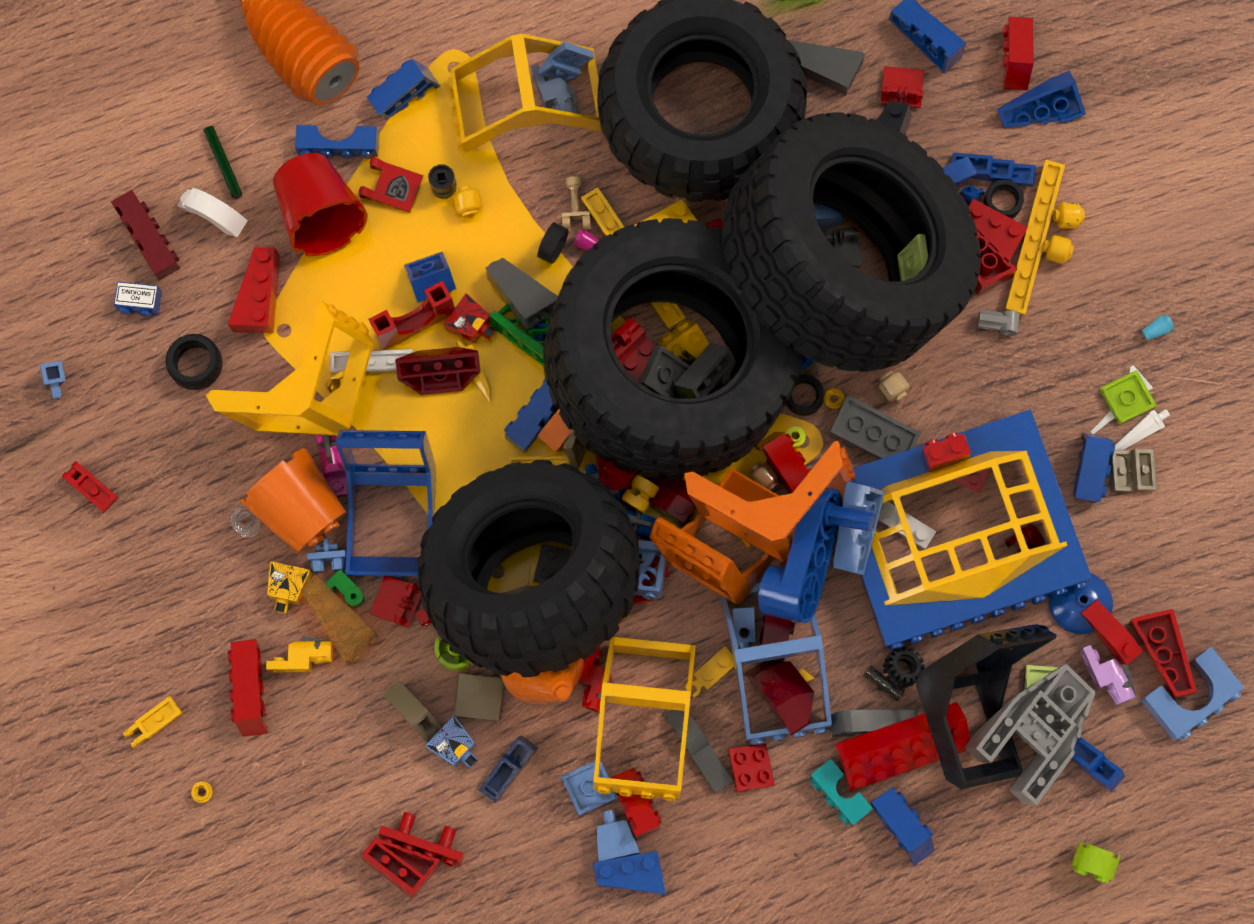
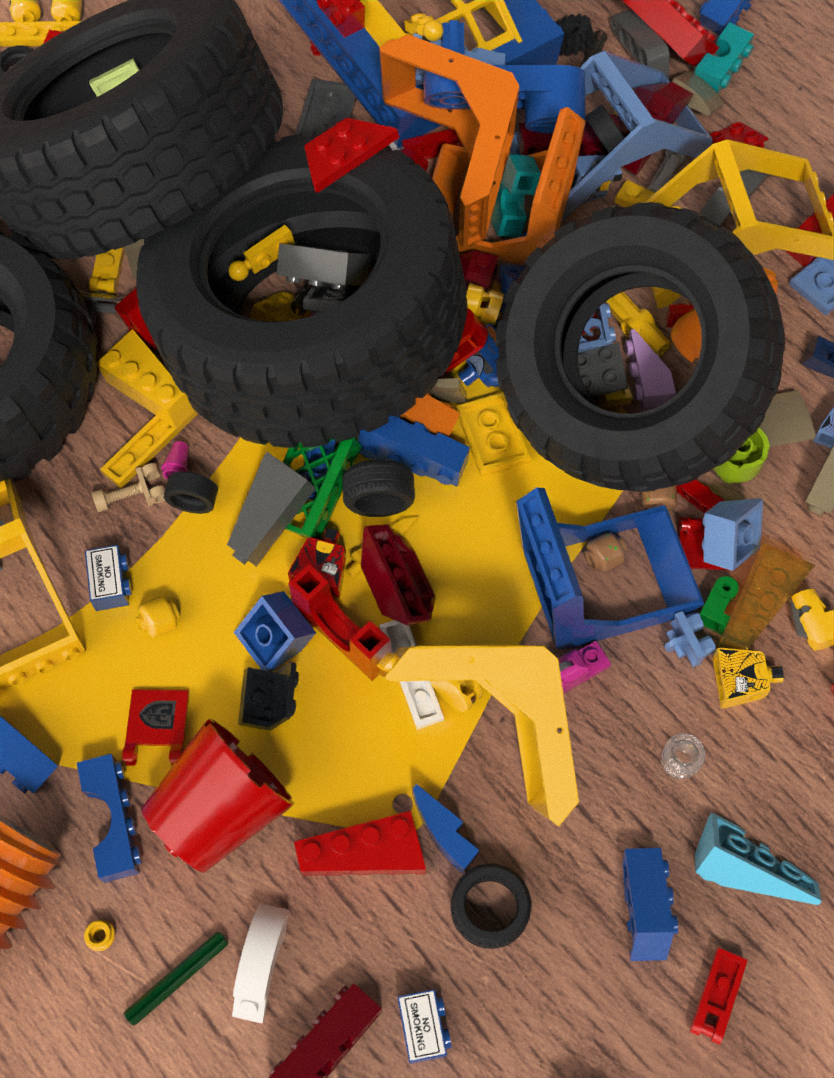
camera: 110 degrees left, 10 degrees down
(160, 460) = (648, 903): none -> blue wedge
(161, 536) = (740, 864): none -> medium azure wedge
(254, 347) = (444, 829): none -> blue slope
(263, 117) = (93, 928): none -> yellow plate
(296, 502) = (642, 686): orange cone -> none
(382, 257) = (268, 697): none -> black bracket
(387, 611) = (732, 532): none -> medium blue slope
(412, 523) = (605, 552): none -> medium nougat head
(442, 181) = (137, 654): black wheel -> none
(508, 174) = (107, 577): none -> brick
(508, 371) = (378, 488): none -> black tyre
(734, 336) = (261, 254): none -> yellow plate
(735, 549) = (518, 179): none -> teal arch
(752, 622) = (605, 128): none -> black tyre
(755, 716) = (666, 170): none -> light grey pin
(757, 392) = (345, 148): none -> red wing
(804, 751) = (704, 96): none -> dark tan slope
(885, 504) = (425, 26): none -> yellow plate

